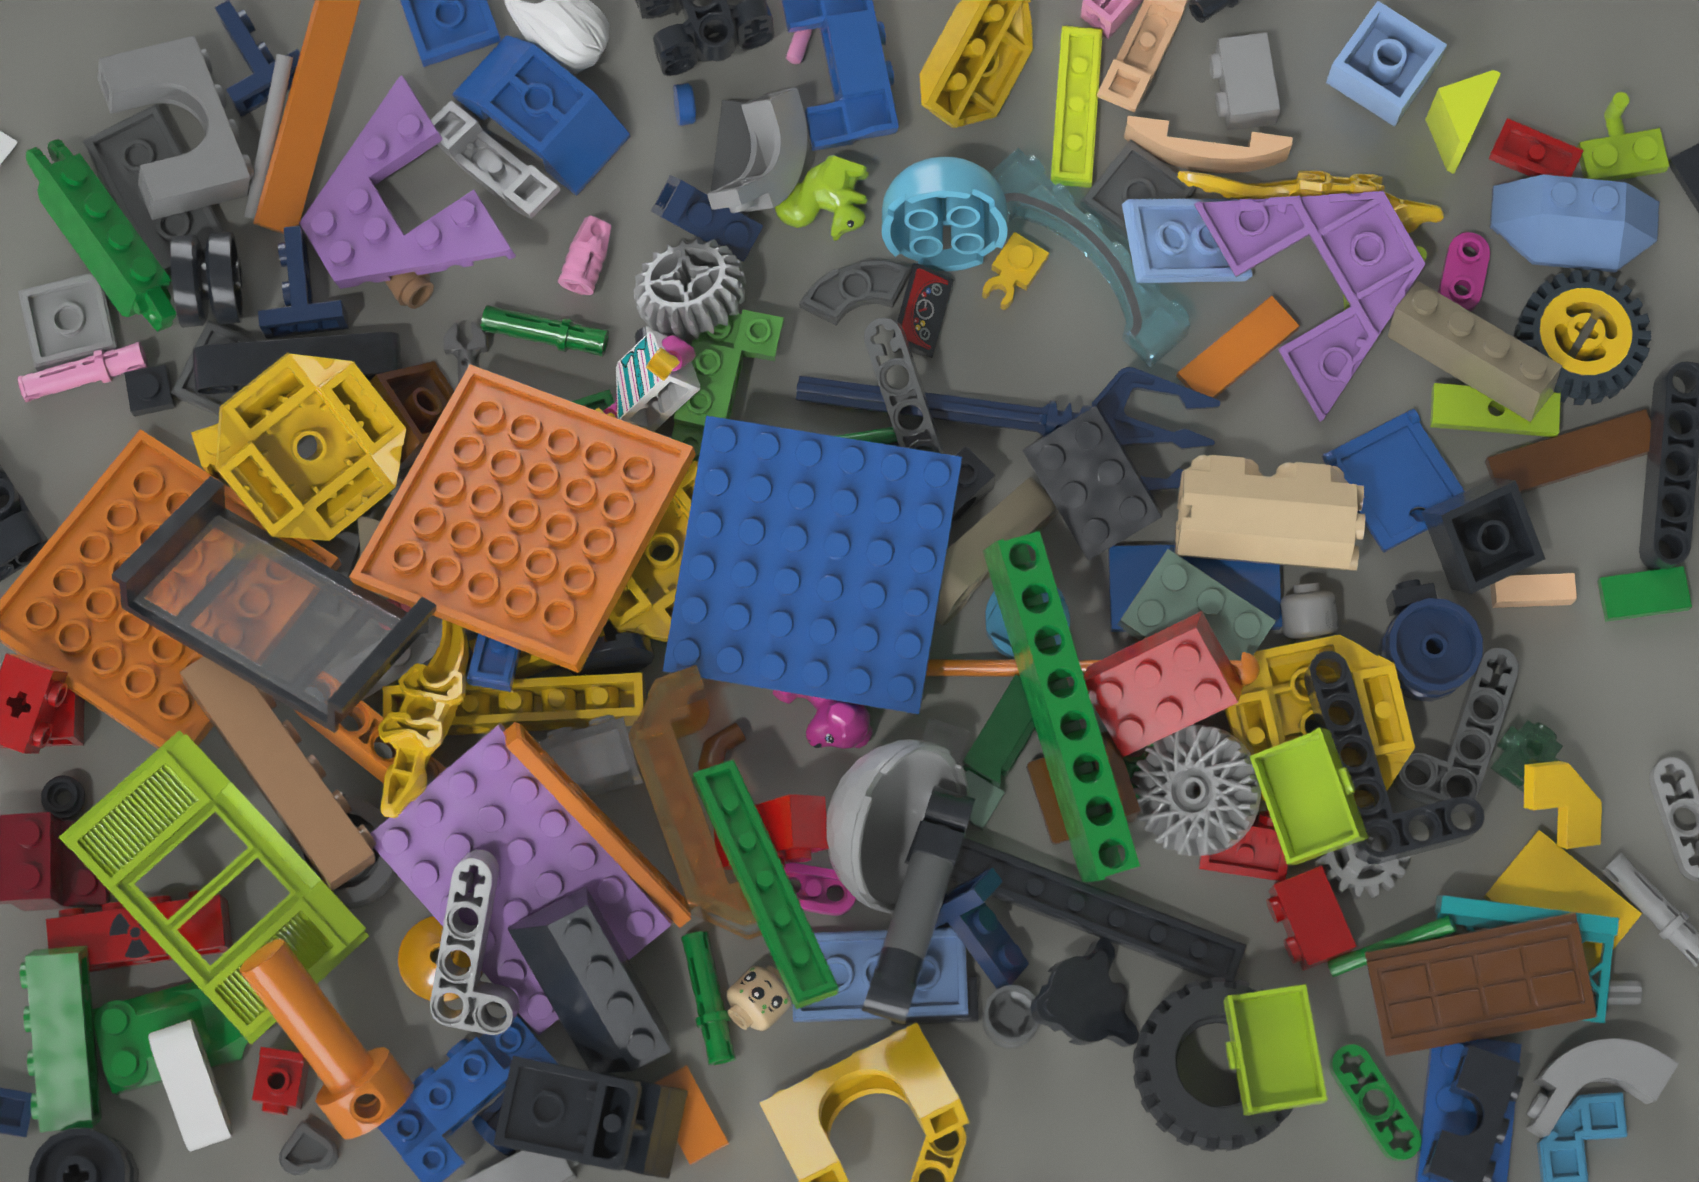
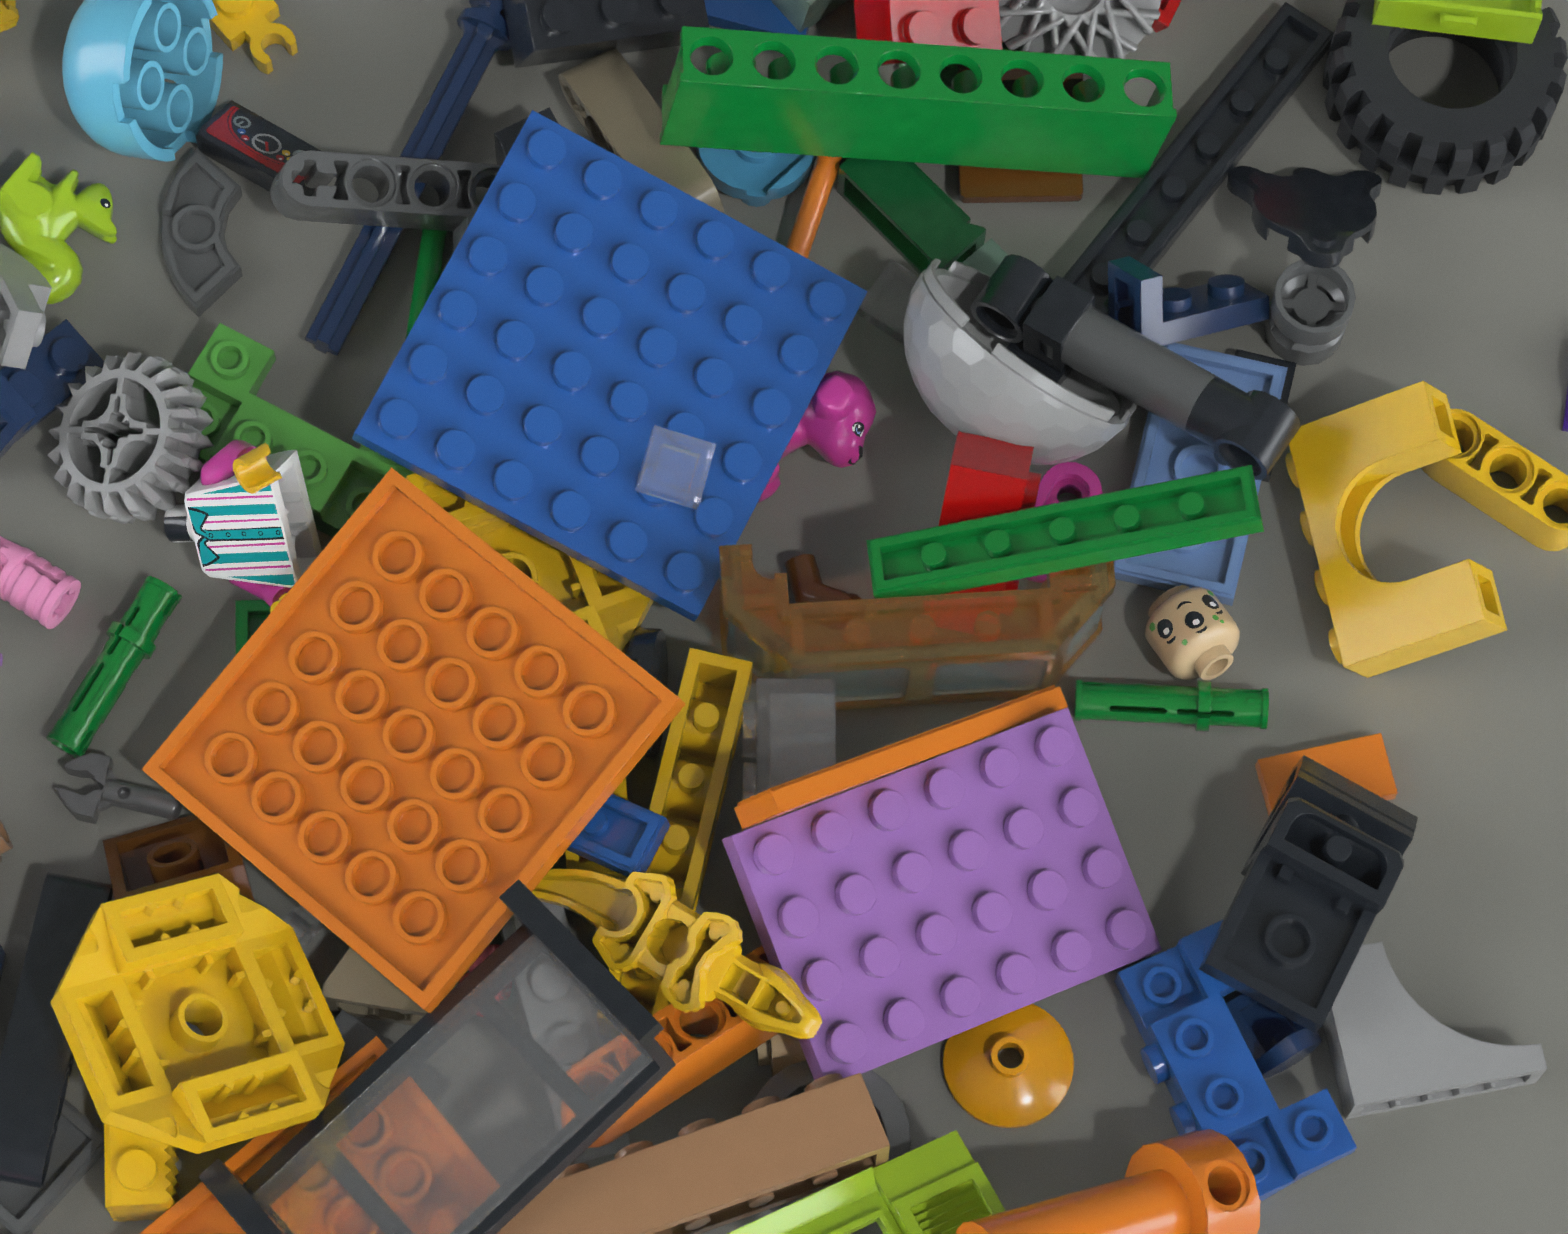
camera: 80 degrees left, 5 degrees down
(472, 941) = (1022, 971): light grey beam -> none
(591, 985) = (1126, 835): black slope -> none
(748, 623) = (675, 467): none -> clear tile

